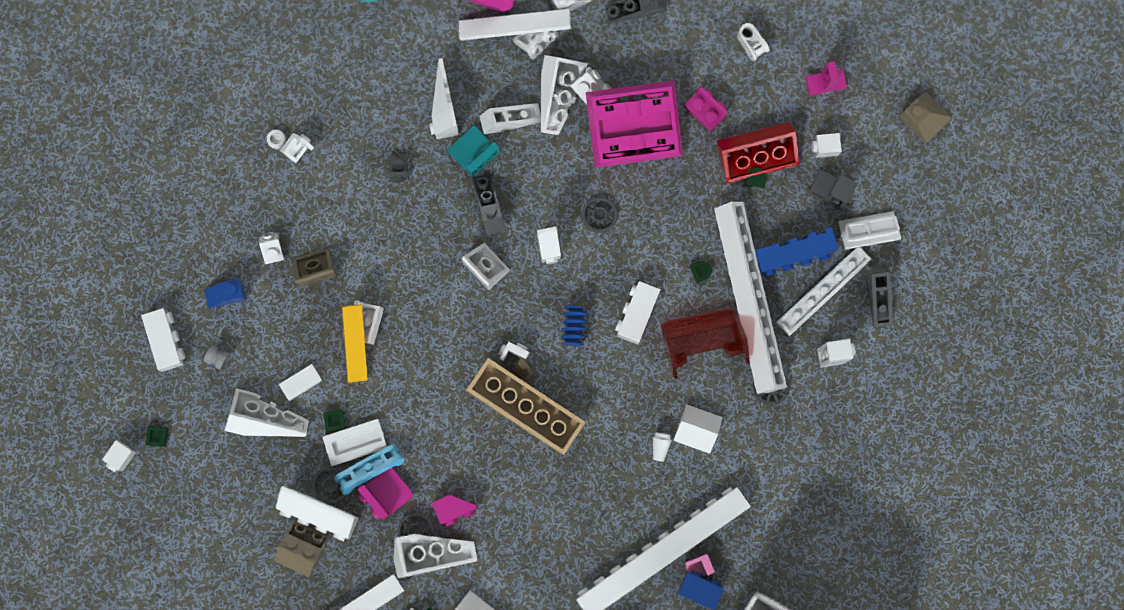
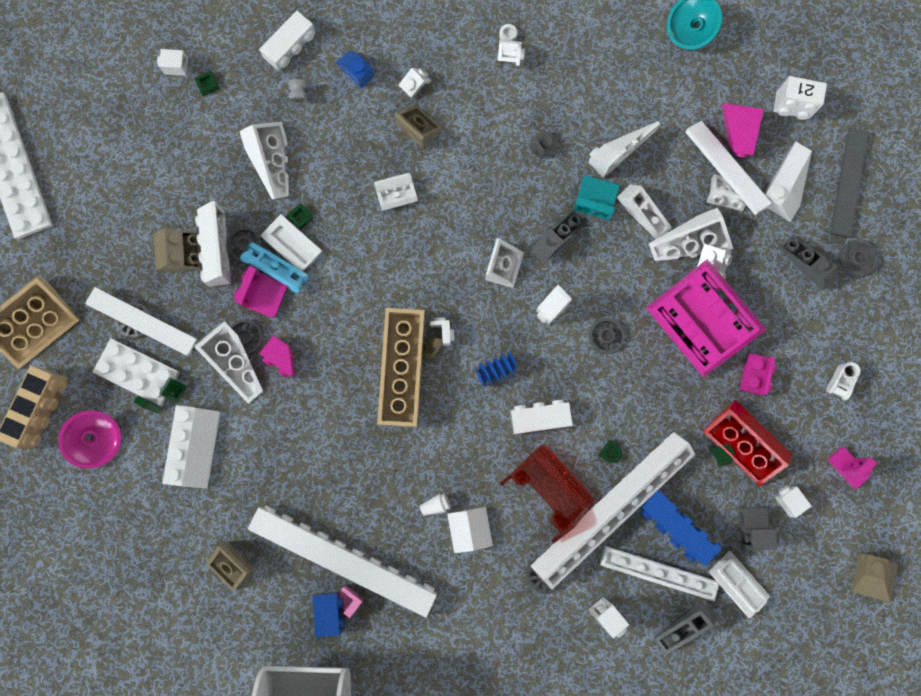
camera: 65 degrees right, 0 degrees up
(300, 382) = (316, 170): white tile -> none
(354, 343) = (373, 192): yellow tile -> none

